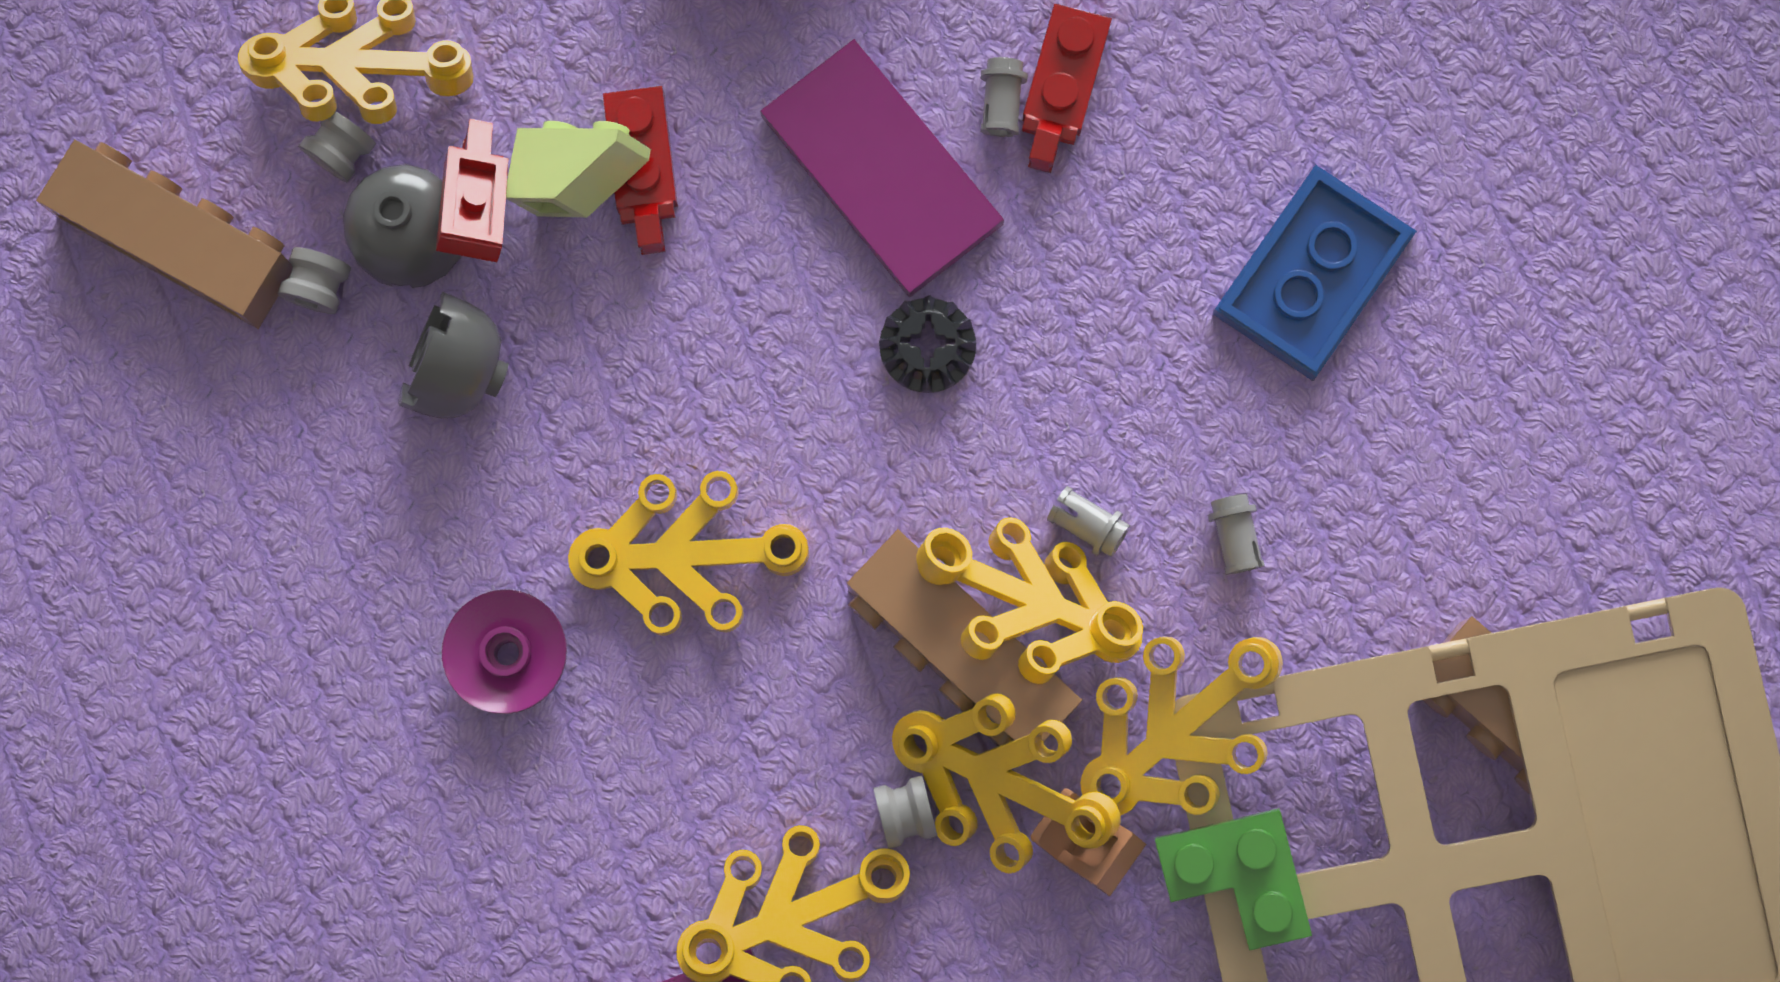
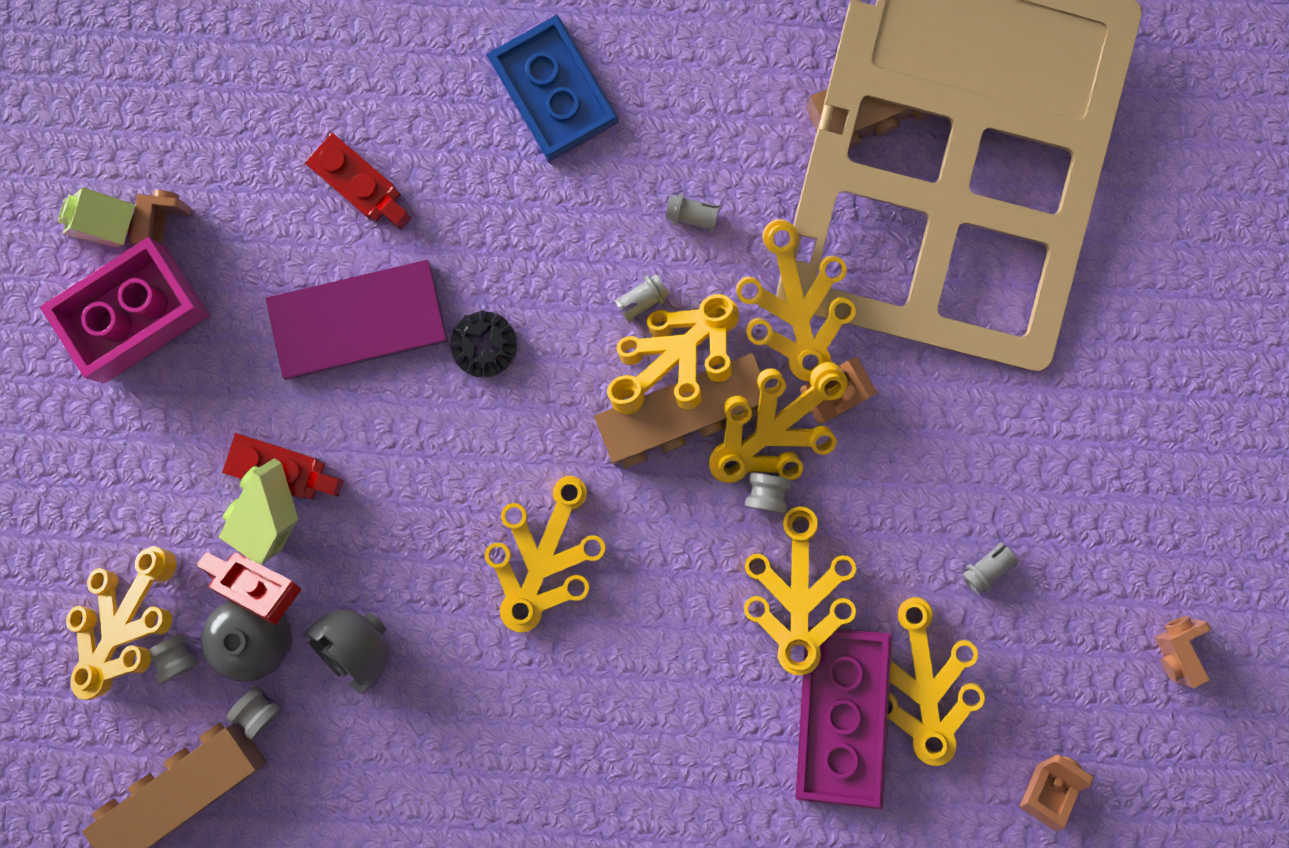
camera: 65 degrees left, 5 degrees up
(473, 647) = (548, 719): magenta dish -> none
(1002, 96) = (348, 223): light grey pin -> none
(1250, 858) = (891, 300): bright green plate -> none

